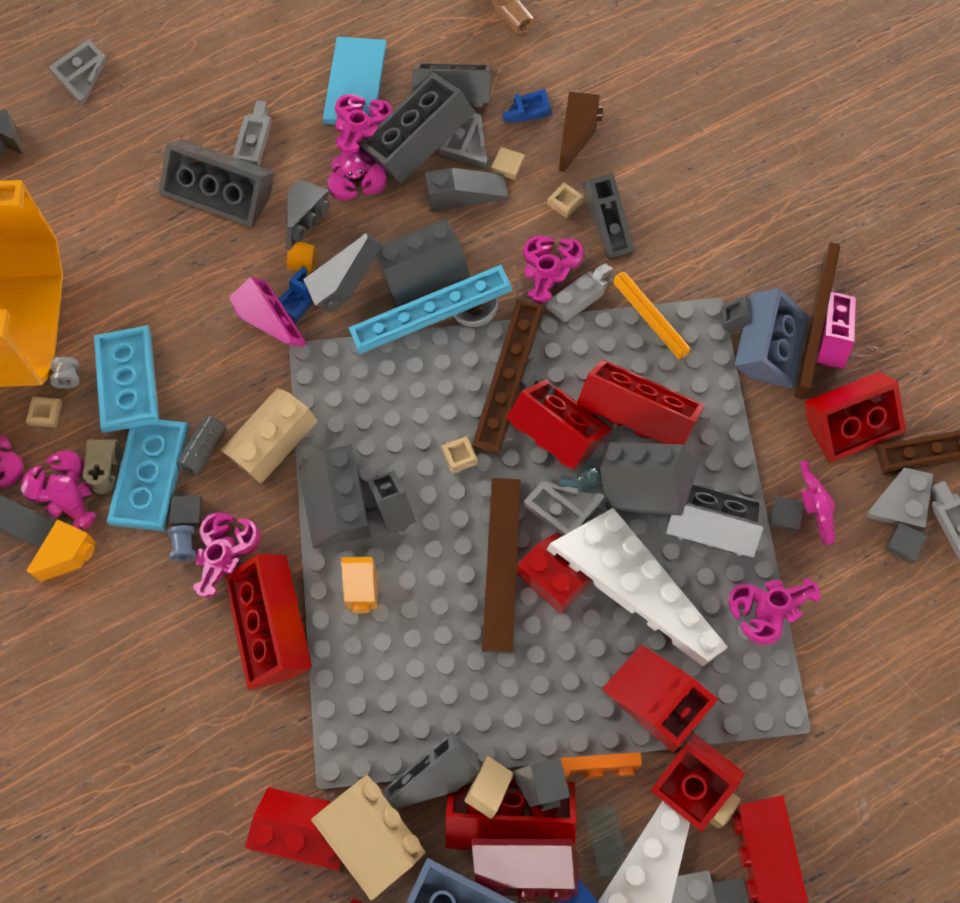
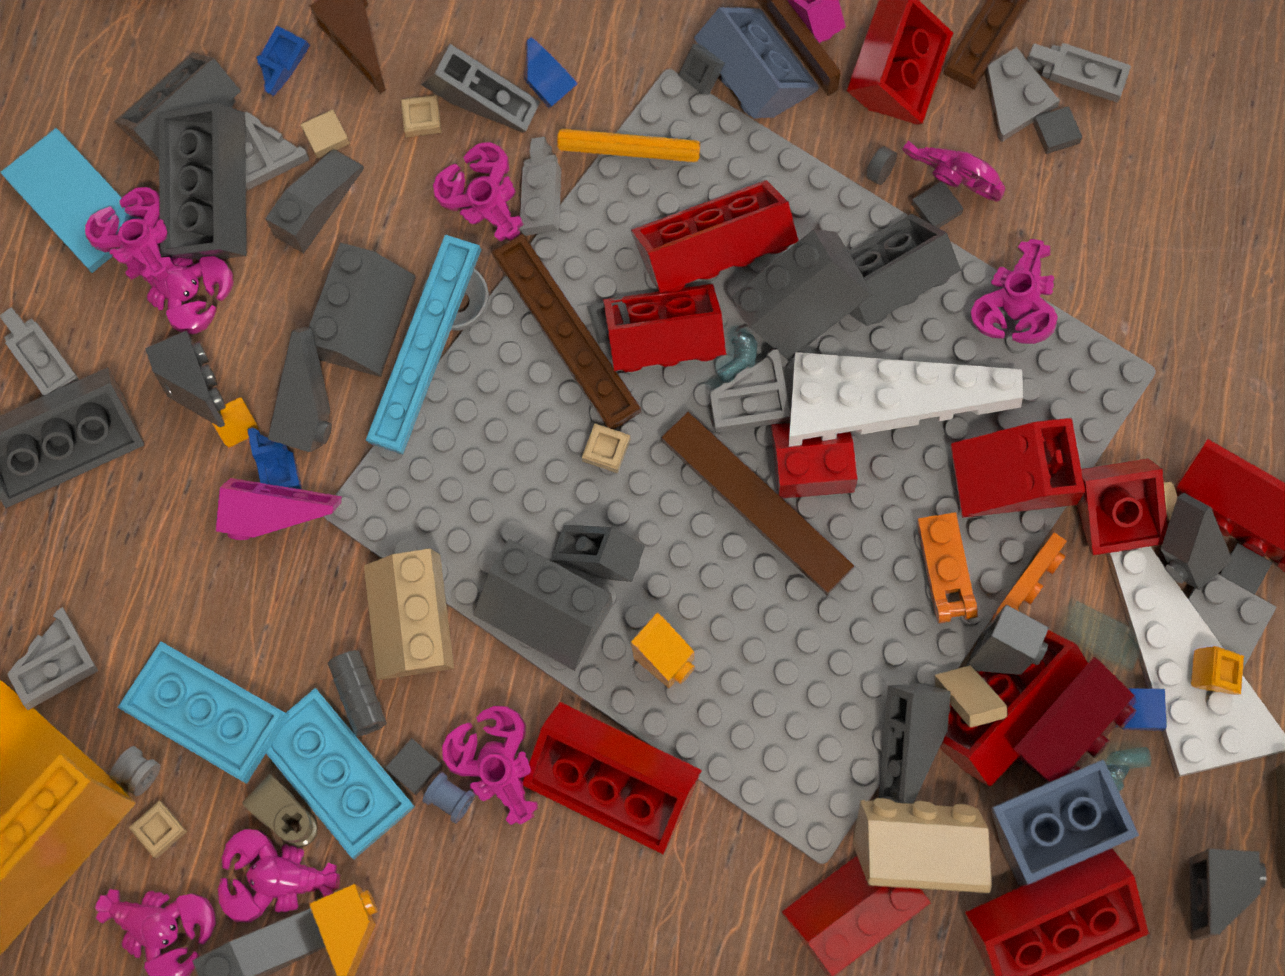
camera: 45 degrees left, 5 degrees up
(91, 284) = (51, 663): none -> light grey wing
(561, 706) = (946, 566): none -> orange plate
(651, 240) = (546, 74): none -> blue slope
(712, 848) = (1194, 543): none -> dark grey slope
(778, 460) = (881, 165): none -> dark grey tile

